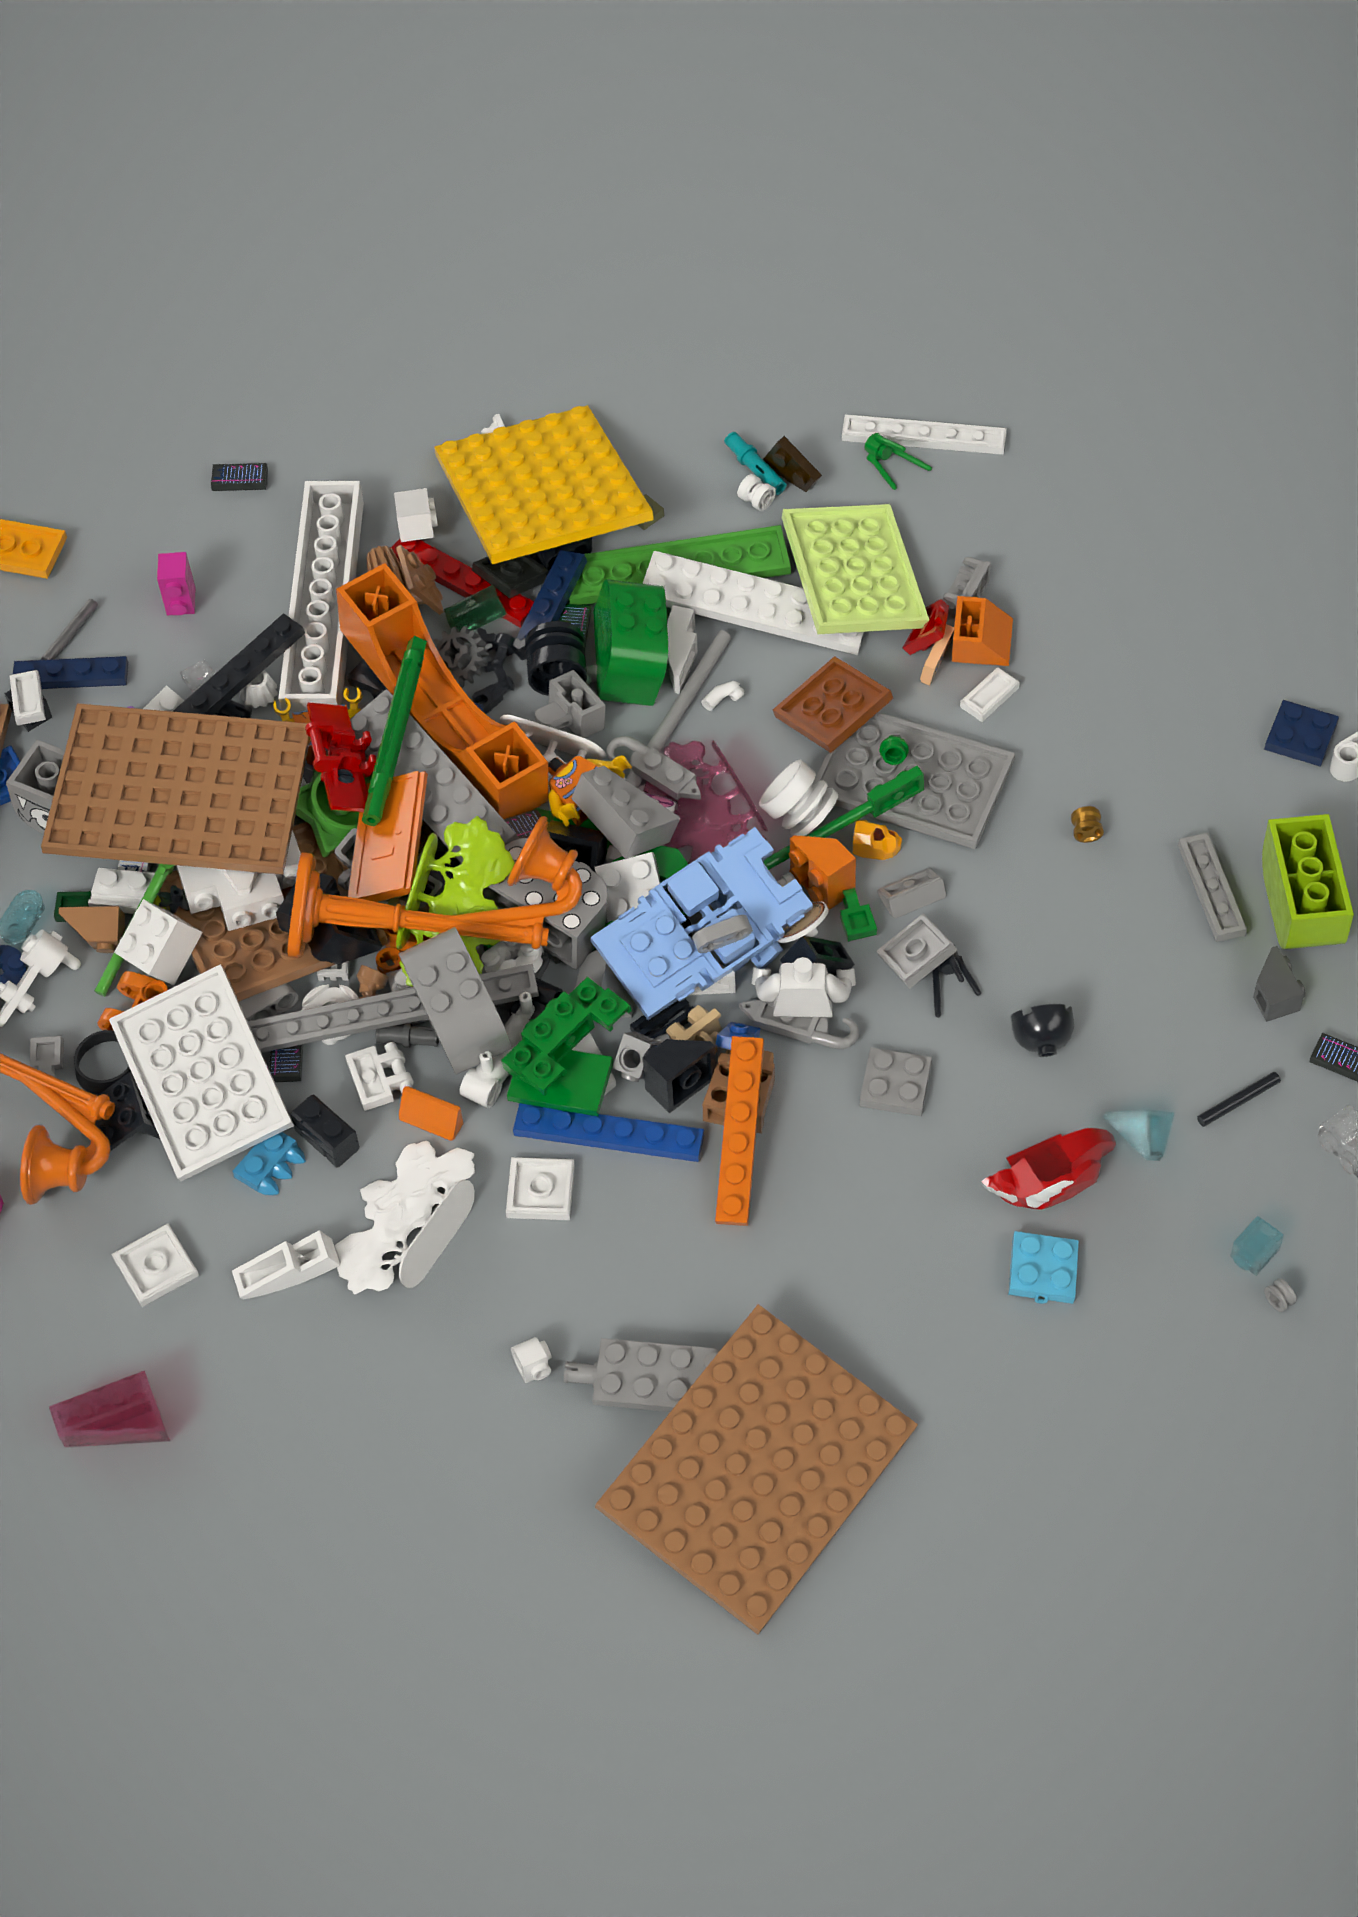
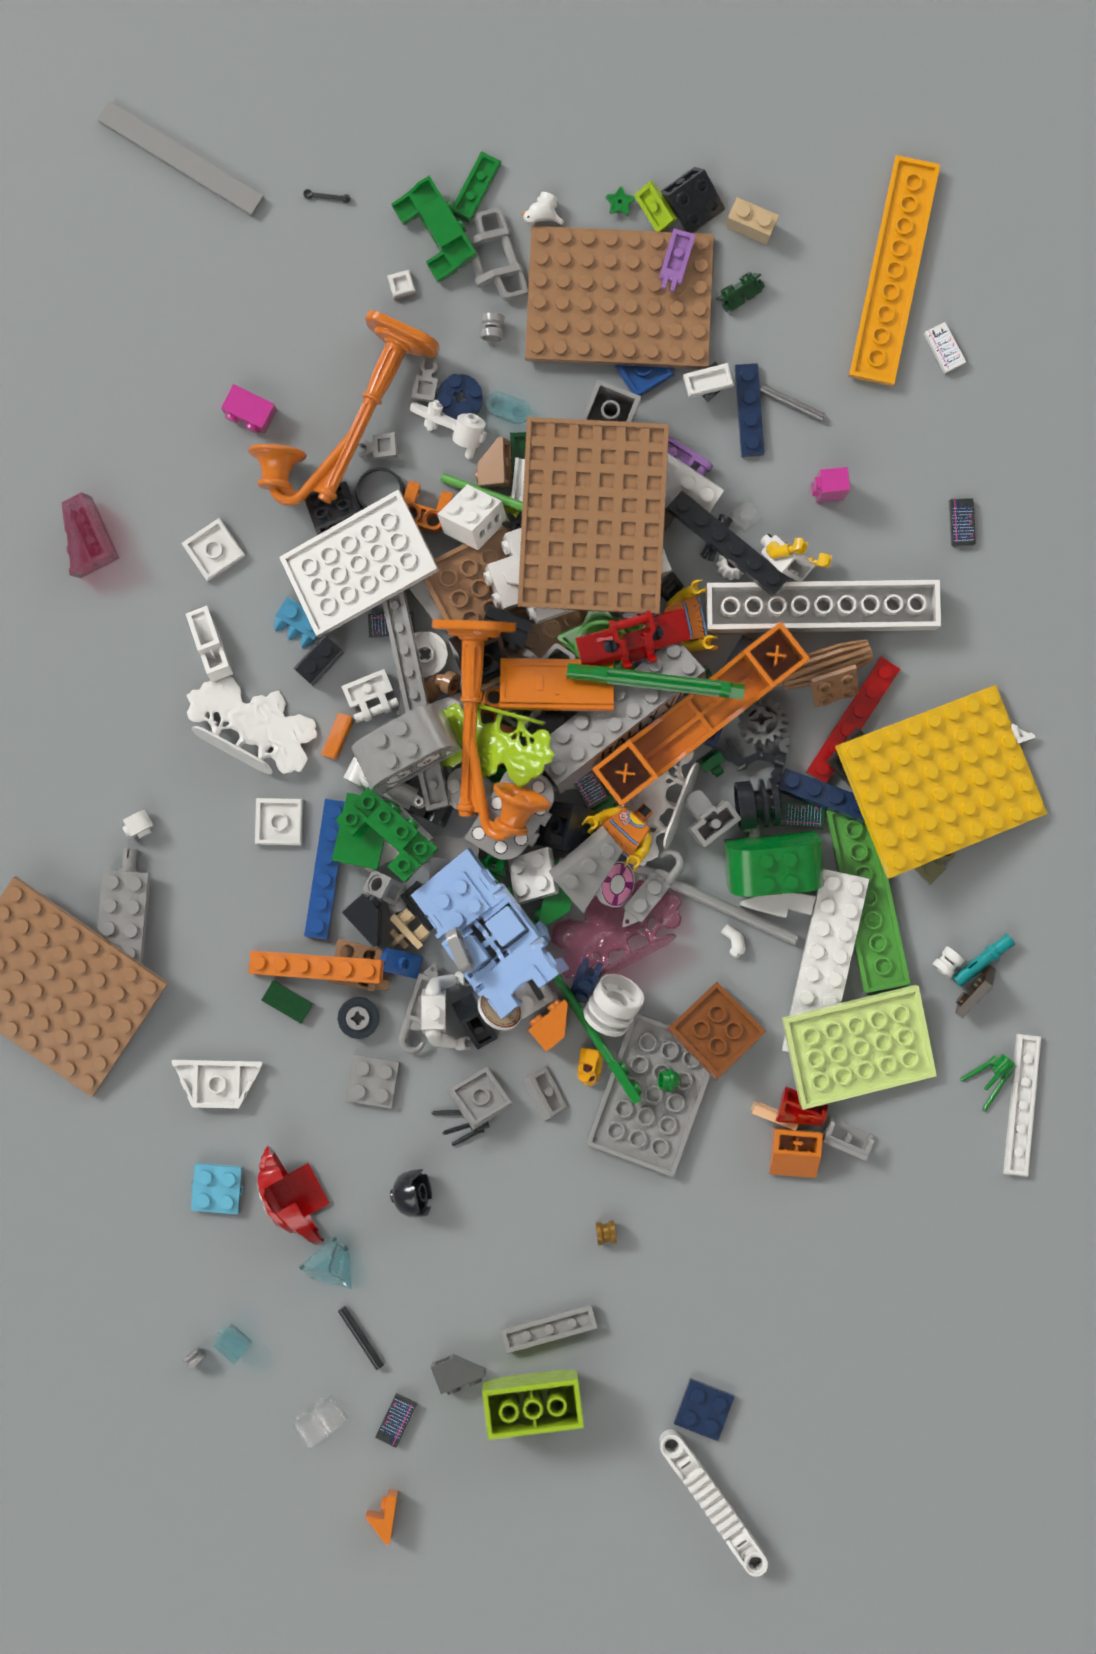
camera: 85 degrees right, 30 degrees up
(30, 489) = (944, 348): none -> white tile
(256, 615) = (790, 558): none -> torso
(415, 514) = (913, 674): white brick -> none
(476, 610) = (814, 732): clear green slope -> none
(499, 705) = (711, 762): none -> dark green tile
(770, 828) = (585, 981): none -> dark blue hinge
(787, 1180) = (287, 1001): none -> dark green tile
(810, 1104) = (358, 1011): none -> black wheel
(856, 919) = (514, 1052): green plate -> none
(895, 1265) = (216, 1081): none -> white wing
(989, 694) = (739, 1157): white tile -> none

